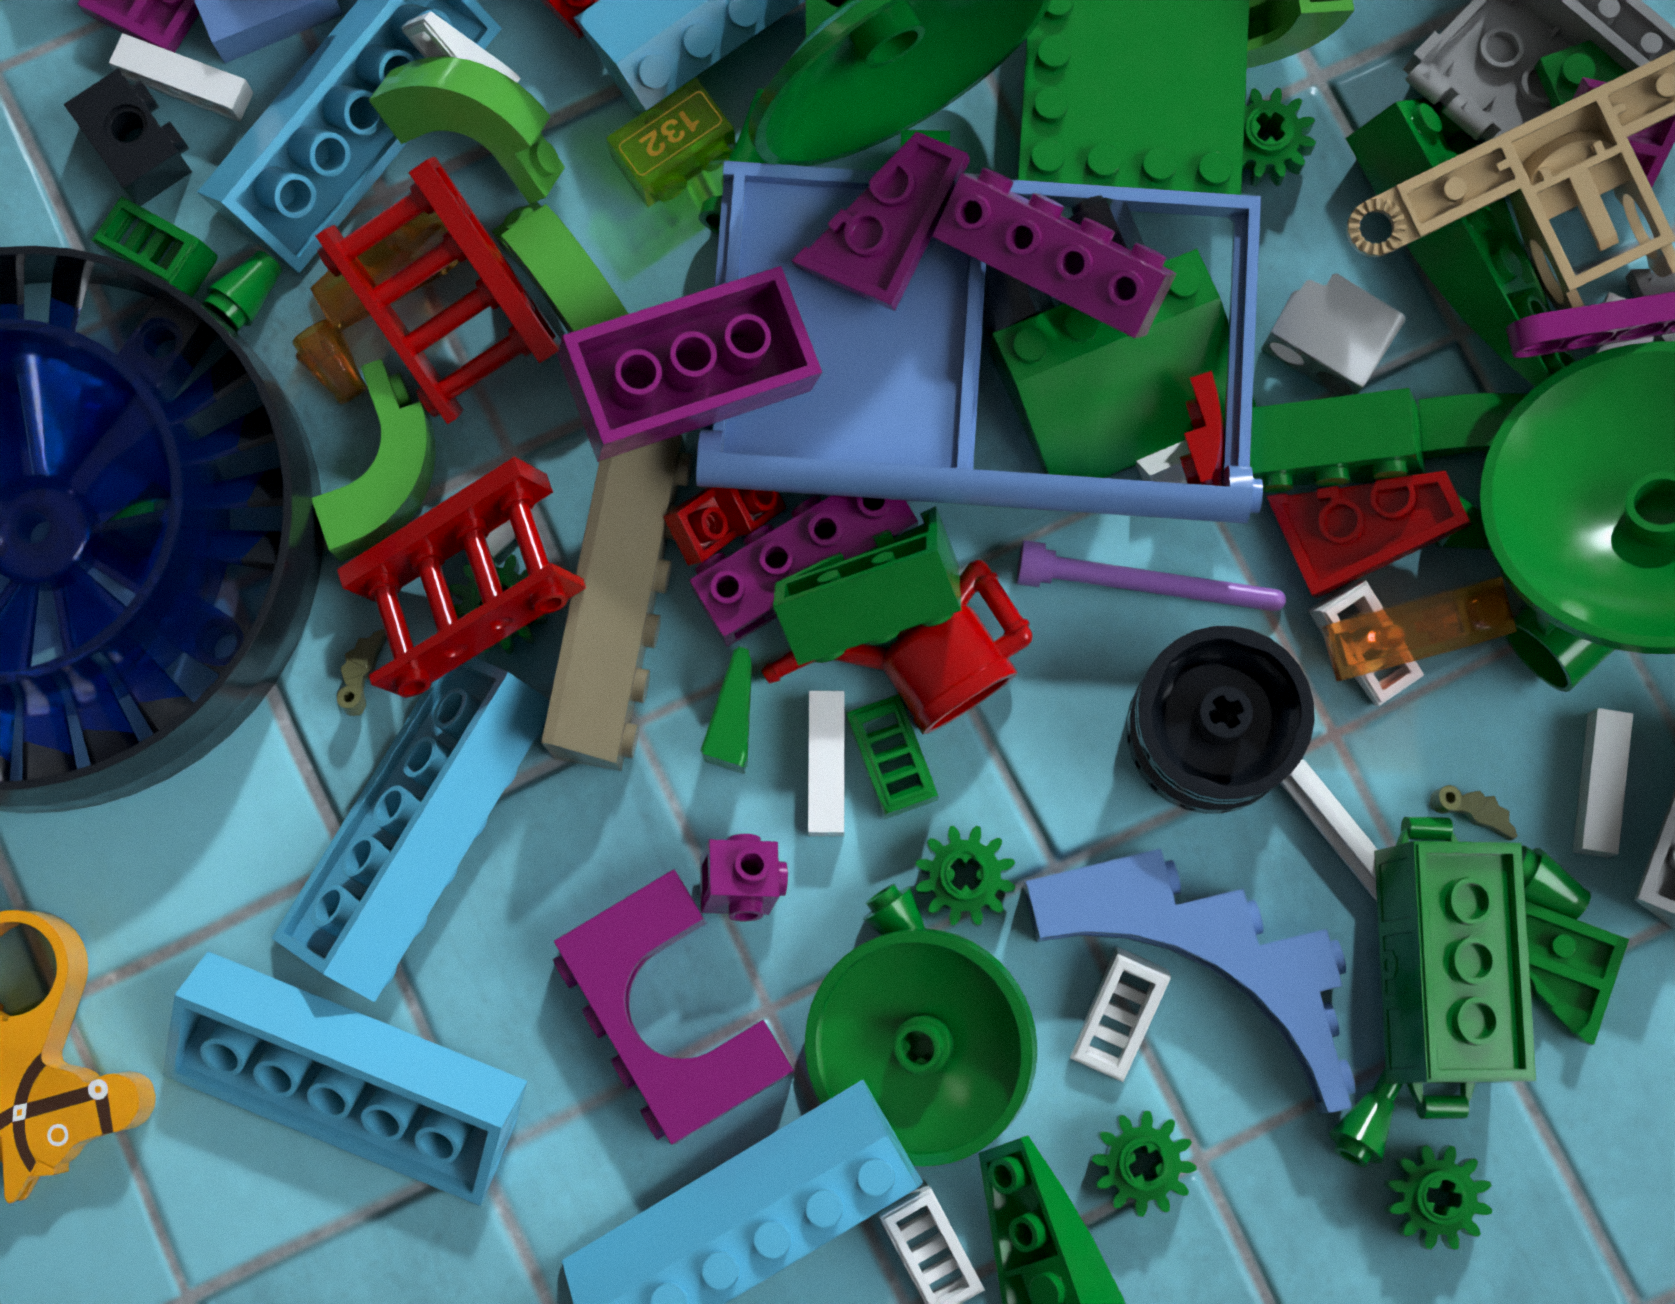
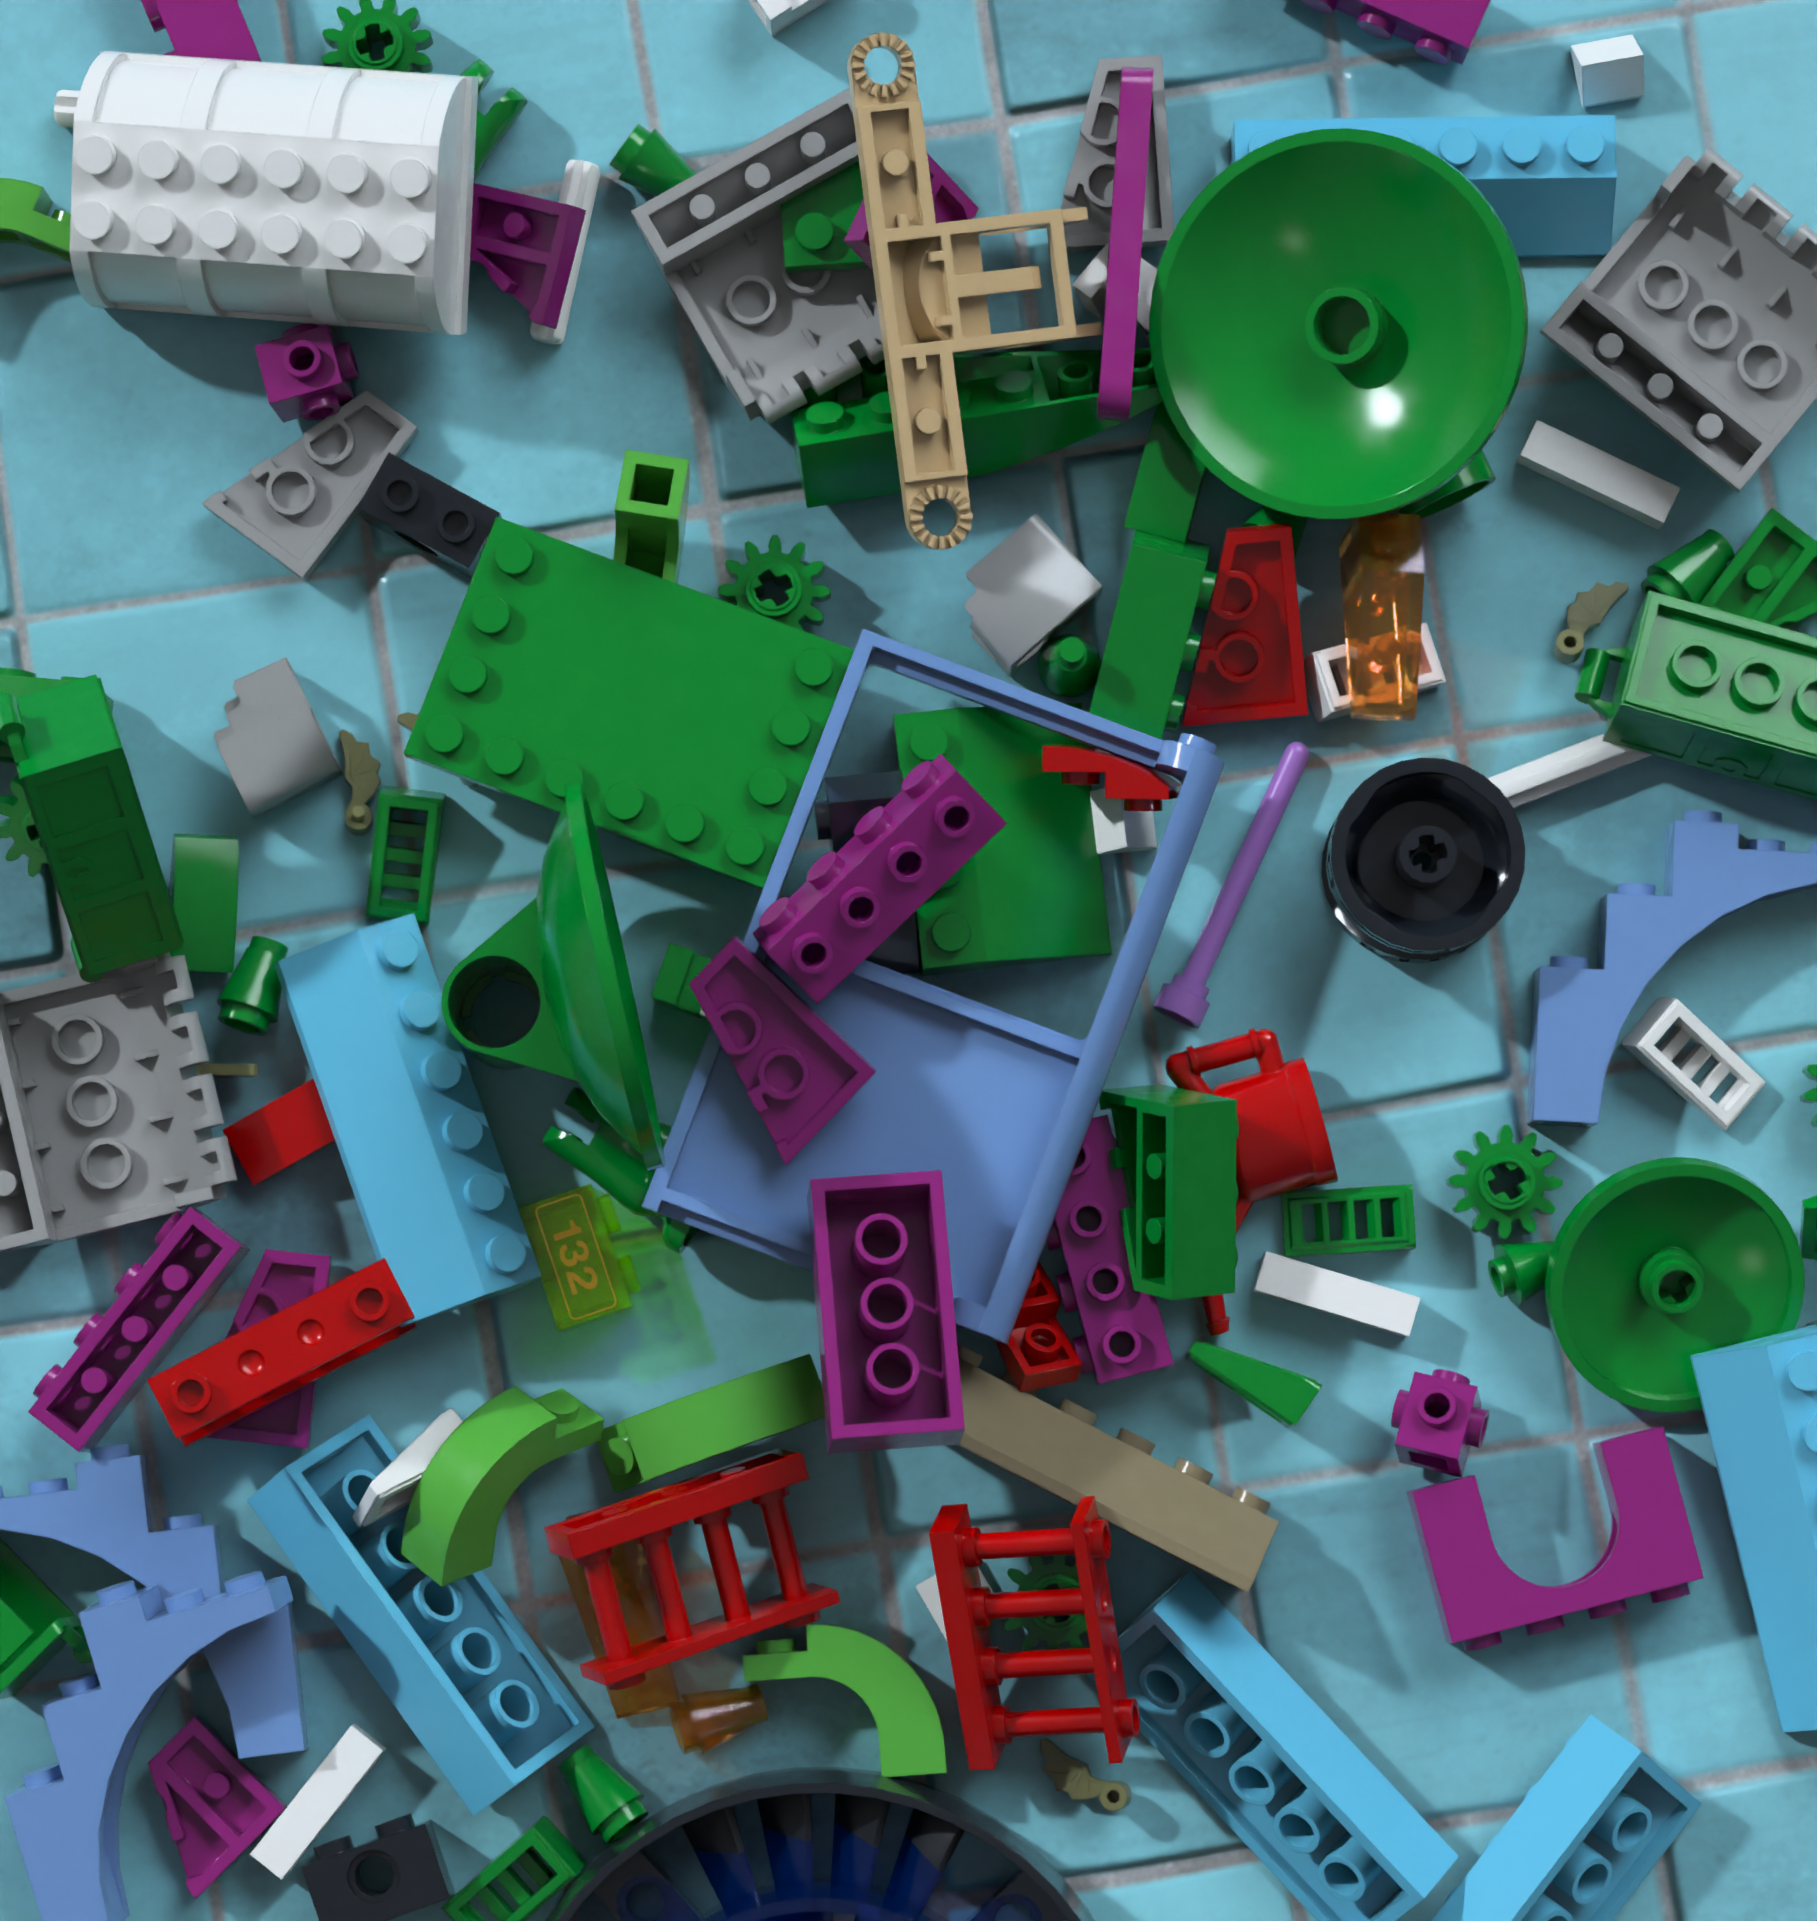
camera: 75 degrees left, 5 degrees up
(1288, 383) = (1069, 665): none -> green cone

